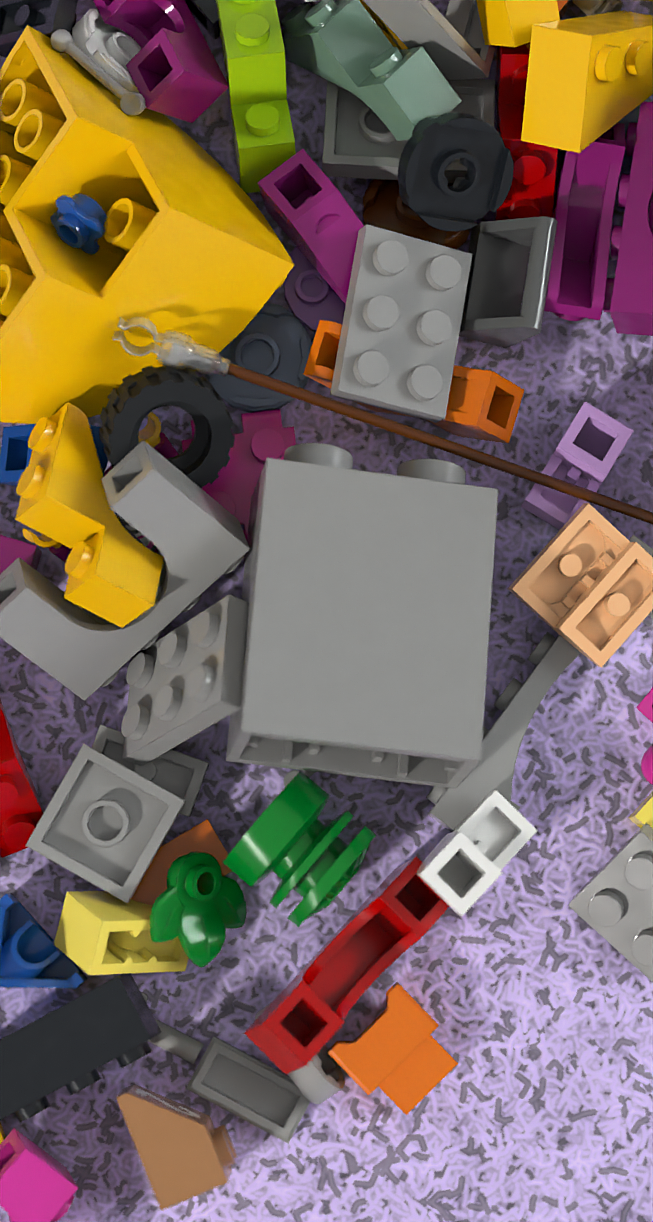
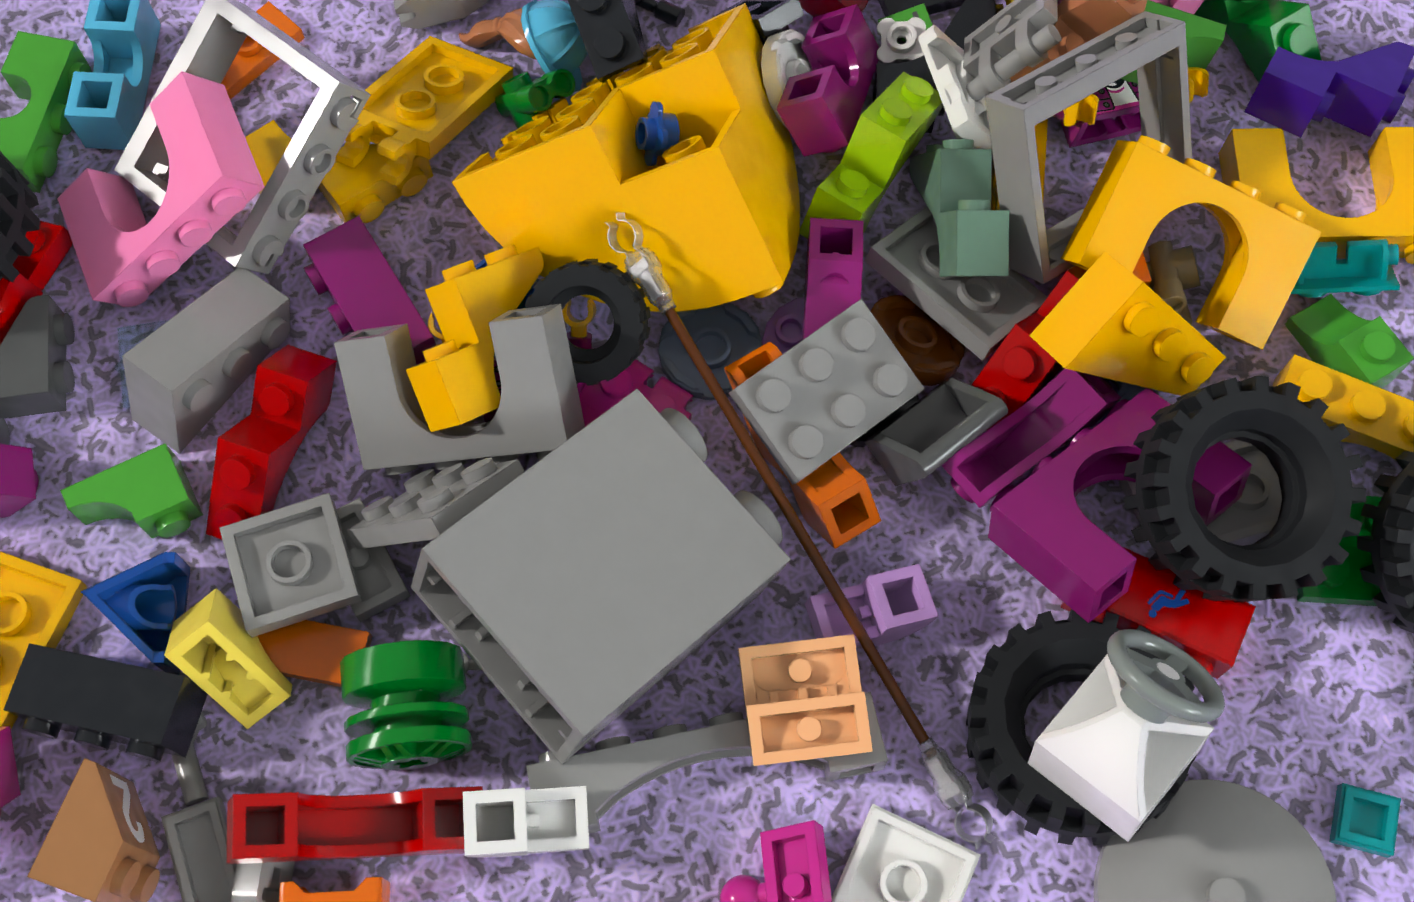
camera: 45 degrees right, 15 degrees down
(130, 102) = (768, 97): light grey hinge -> none
(197, 910) = (290, 693): green plate -> none
(434, 147) = (961, 285): black plate -> none

